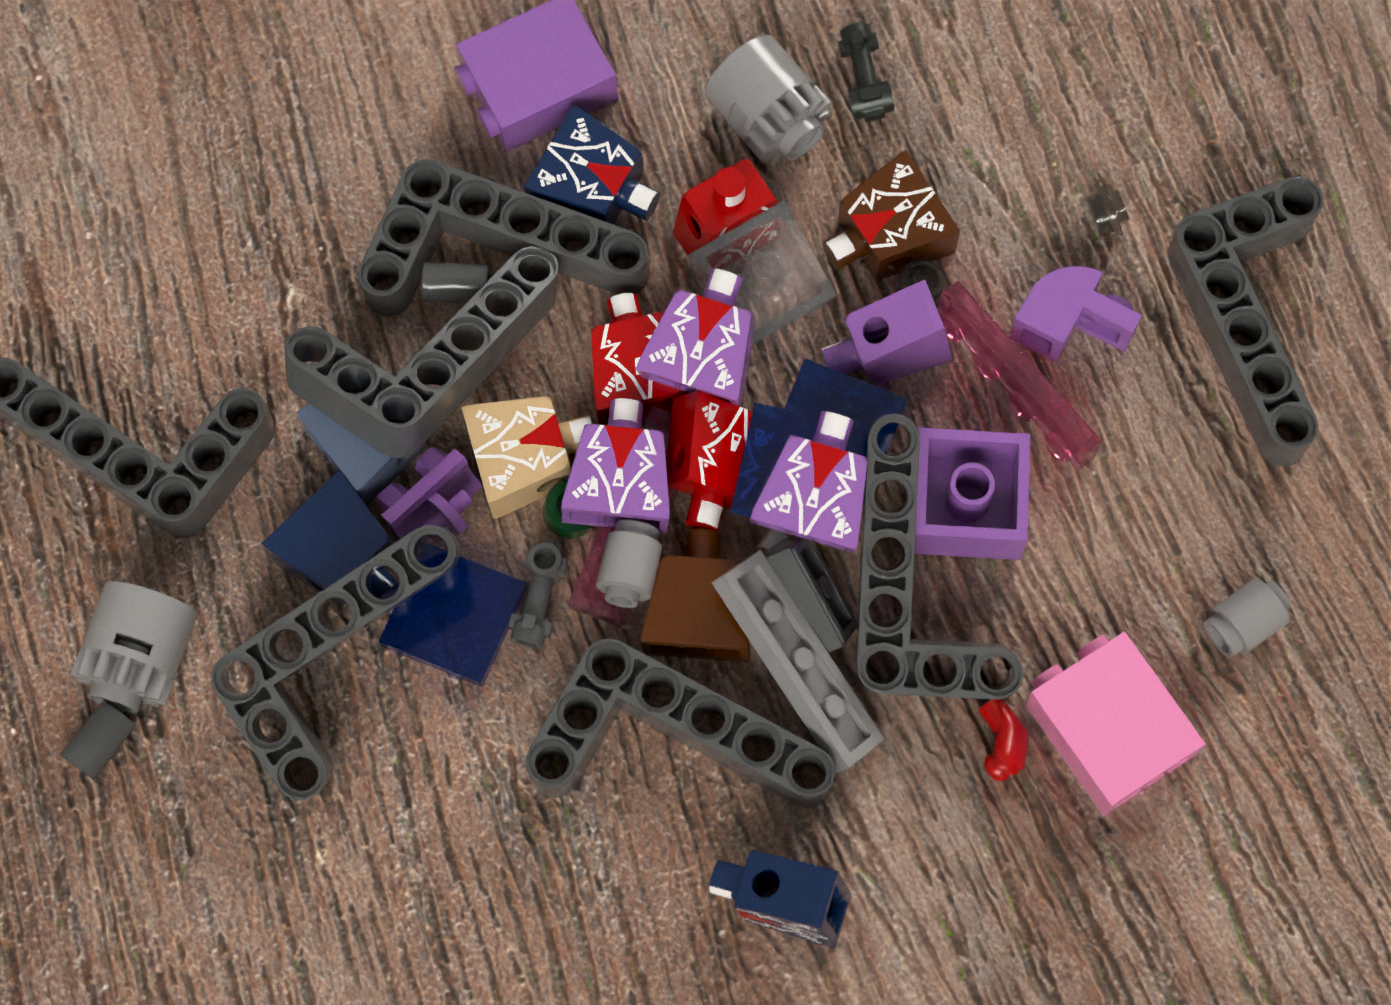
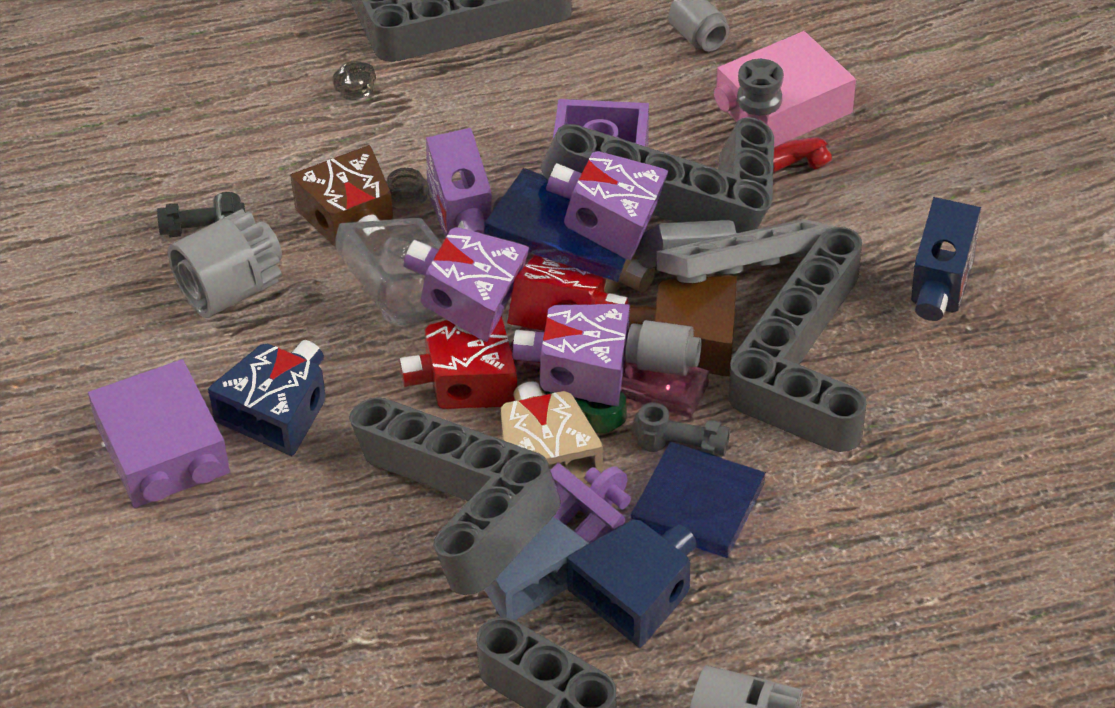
camera: 90 degrees left, 25 degrees down
(317, 640) = (737, 568): dark grey beam -> none
(452, 281) = (369, 495): dark grey piece -> none
(491, 229) = (289, 496): dark grey beam -> none
(721, 205) = (329, 274): red torso -> none
(1028, 388) = (510, 121): clear pink plate -> none
(1071, 301) = (444, 98): medium lavender brick -> none
(1071, 666) = (760, 87): none -> dark grey wheel

